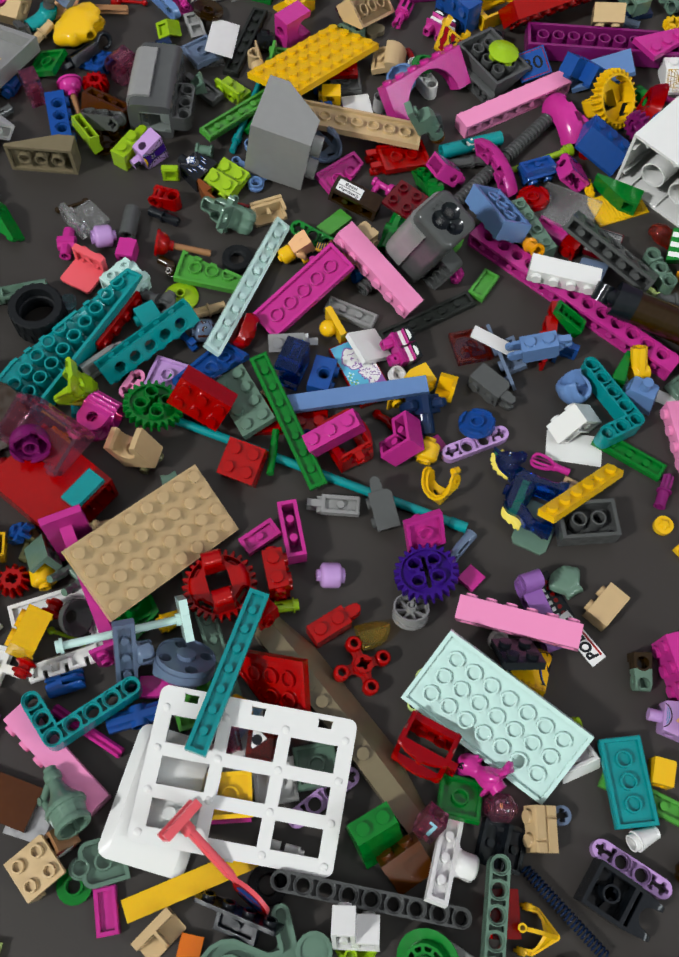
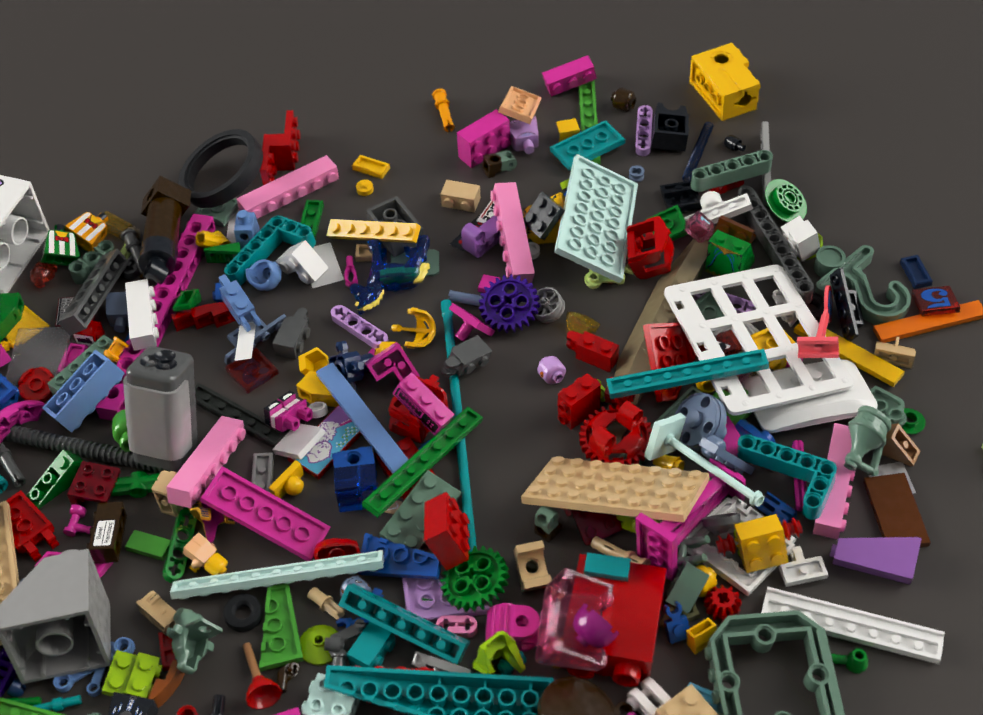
camera: 110 degrees left, 15 degrees down
(35, 869) = (921, 438): tan bracket -> none
(106, 911) = (910, 390): dark pink tile -> none
(242, 462) = (488, 478): red brick -> none
(259, 537) = (550, 437): dark pink plate -> none
(272, 452) = (459, 462): green piece -> none
(276, 341) = (327, 508): light grey hinge -> none
(292, 531) = (530, 411): dark pink brick -> none
(335, 505) = (483, 397): light grey hinge -> none
(363, 659) = (613, 318): red gear -> none
(385, 419) = (372, 393): red piece -> none
(445, 170) = (34, 464): dark pink torso -> none
(476, 423) = (338, 328): blue tile -> none
(486, 776) = (641, 207): dark pink animal -> none
(500, 808) = (656, 201): clear pink head -> none
(540, 829) = (655, 176): tan brick -> none
(549, 934) = (721, 152): yellow helmet -> none
(565, 581) = (452, 226): sand green animal -> none
(642, 838) = (622, 127): white cone -> none
(663, 491) = (333, 194): magenta axle -> none

